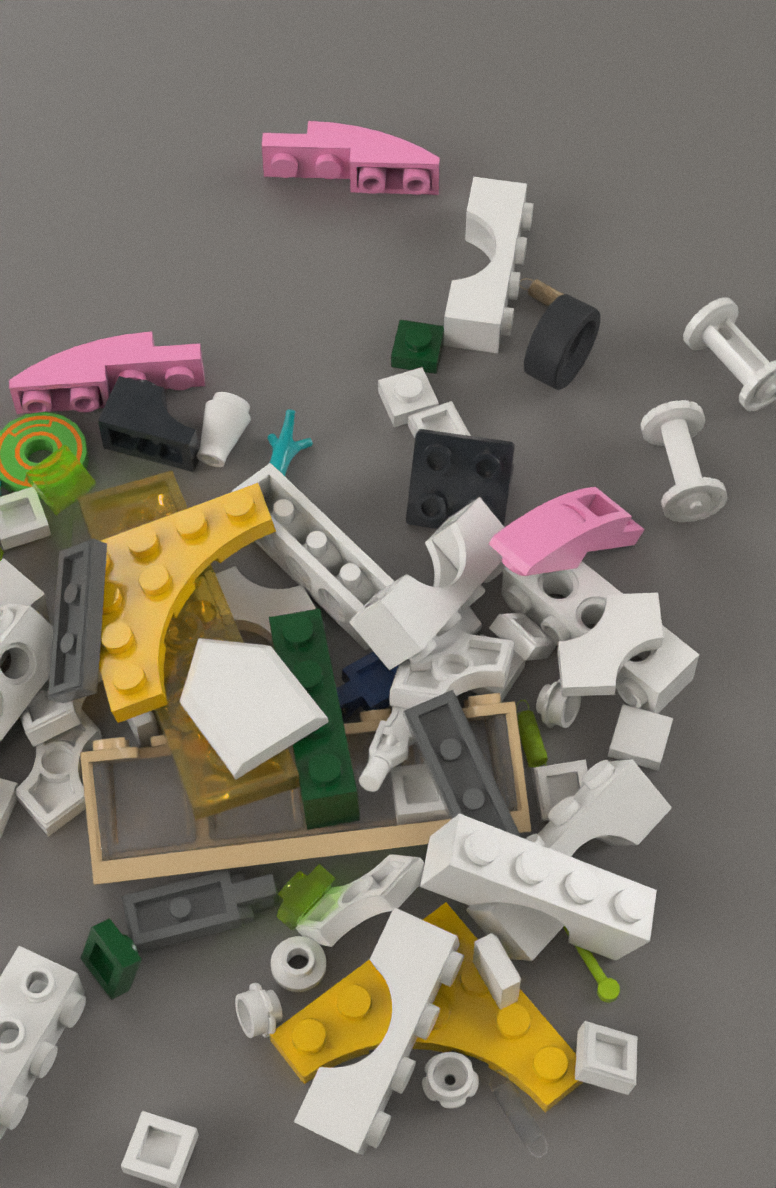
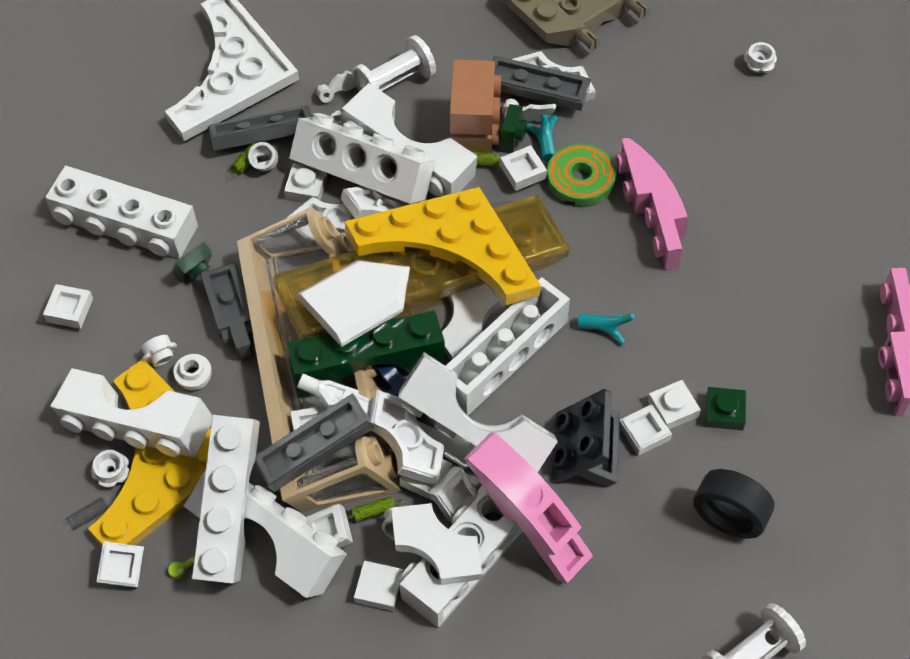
camera: 85 degrees right, 0 degrees up
(60, 479) = (550, 182): clear neon green plate -> none
(78, 621) = (416, 194): dark grey tile -> none
(140, 426) = (614, 230): black arch -> none
(223, 424) = (621, 279): white cone -> none
(302, 894) = (237, 365): clear neon green plate -> none
(355, 902) = (227, 394): white tile -> none
(478, 304) = (769, 448): white arch -> none
(496, 970) = (170, 479): white tile -> none
(542, 292) = (796, 506): tan piece -> none
(673, 427) = (632, 606): white hose -> none

